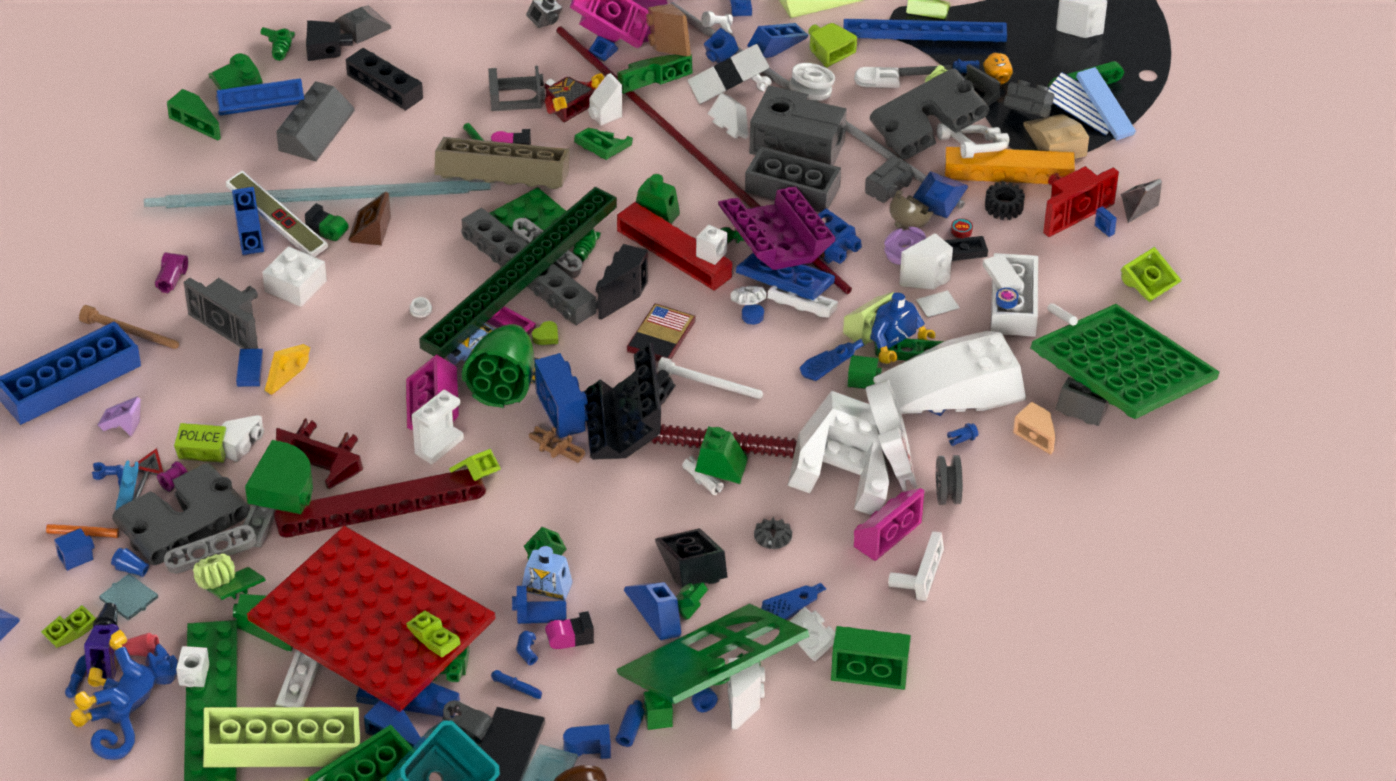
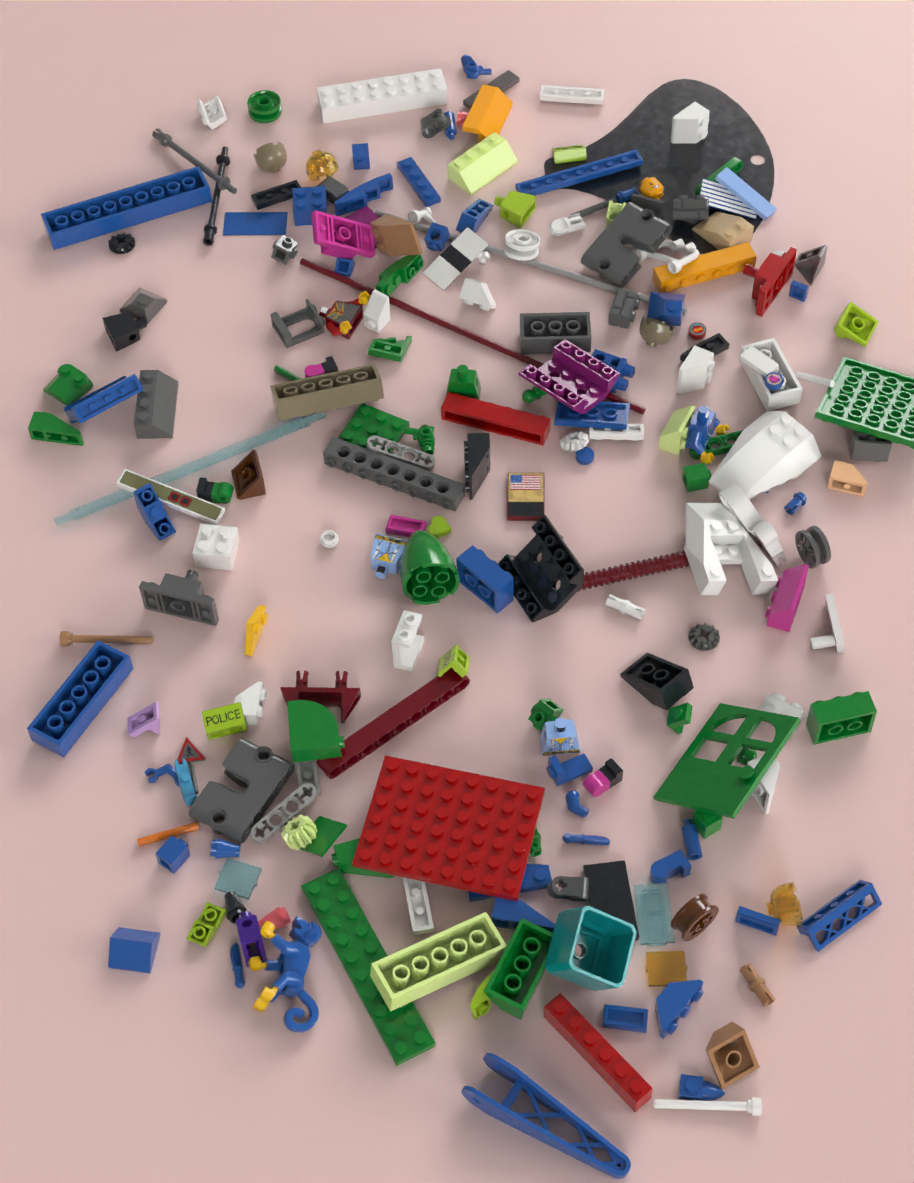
camera: 20 degrees left, 10 degrees up
(166, 479) = (216, 758): magenta bush -> none
(171, 268) = (112, 574): magenta piece -> none
(192, 666) = (329, 918): white brick -> none
(249, 367) = (222, 639): blue tile -> none
(280, 40) = (87, 341): green piece -> none
(384, 78) = (189, 348): black brick -> none
(427, 383) = (379, 611): dark pink slope -> none
(432, 634) = (512, 827): lime slope -> none
(517, 273) = (396, 487): dark green piece -> none
(560, 448) = (494, 624): medium nougat piece -> none
(657, 607) = (656, 732): blue slope -> none
(671, 368) = (590, 523): white piece -> none
(711, 244) = (531, 410): white brick -> none
(721, 456) = (633, 587): green slope -> none
(789, 603) = (750, 689): blue piece -> none
(798, 126) = (536, 287): dark grey piece -> none
(826, 361) = (667, 476): blue piece -> none
(898, 238) = (669, 369): lavender plate -> none
(937, 303) = (713, 399): white sticker -> none
(1004, 192) = (716, 290): black tyre -> none

